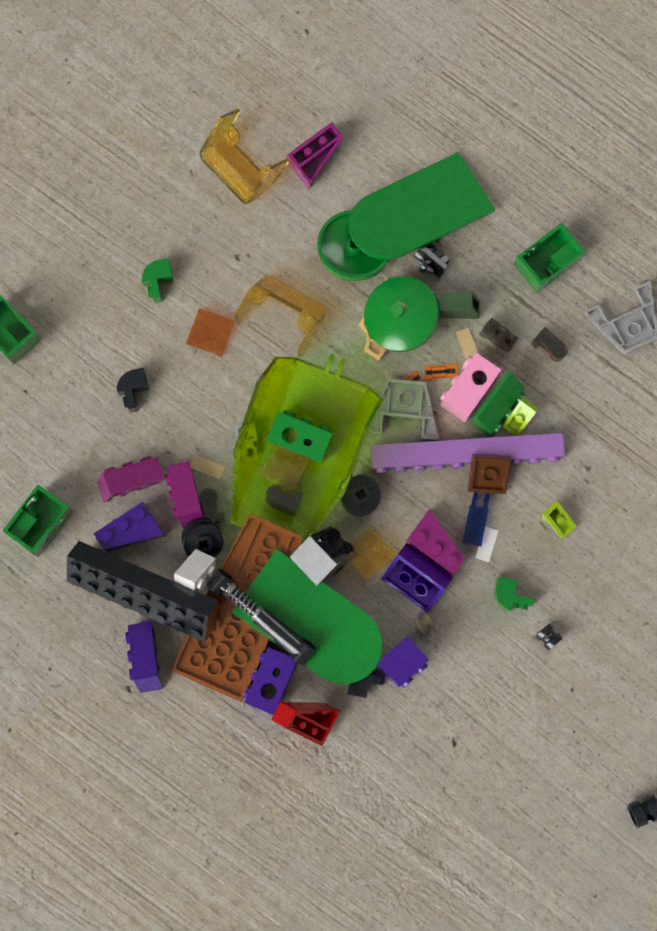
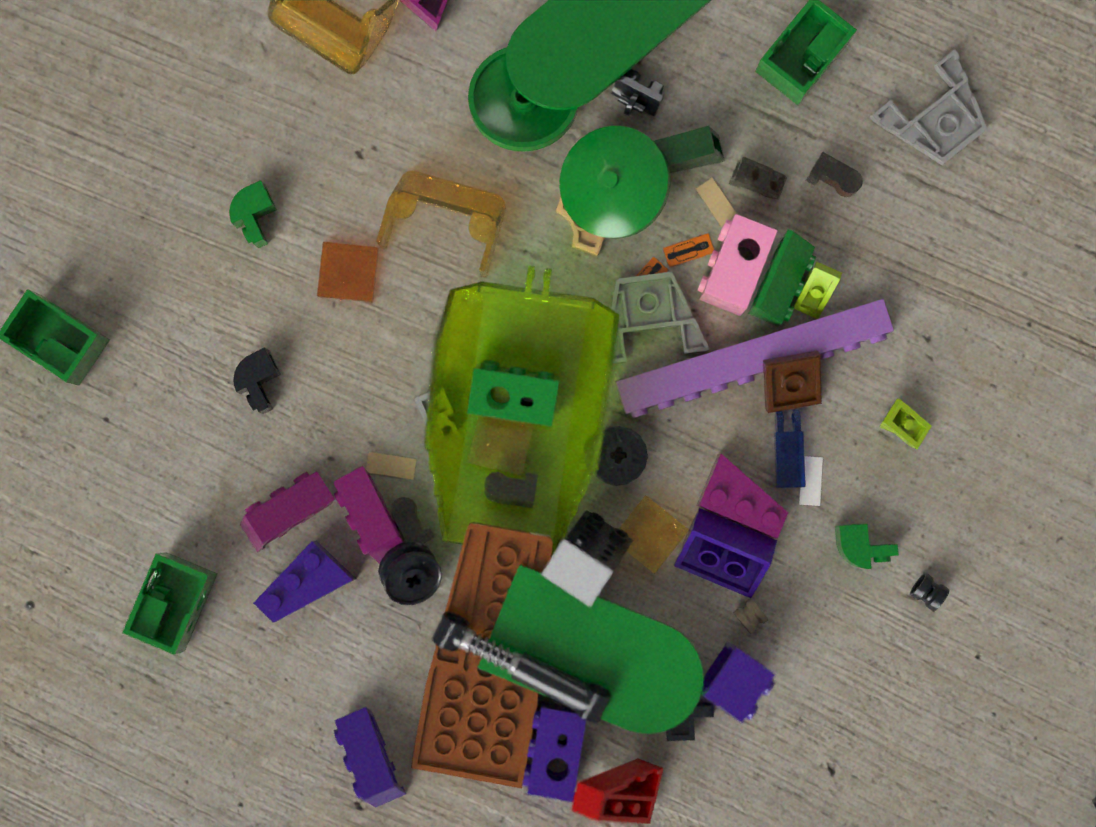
camera: 10 degrees left, 5 degrees up
(142, 591) = (342, 670): black brick -> none
(196, 570) = (410, 629): white slope -> none

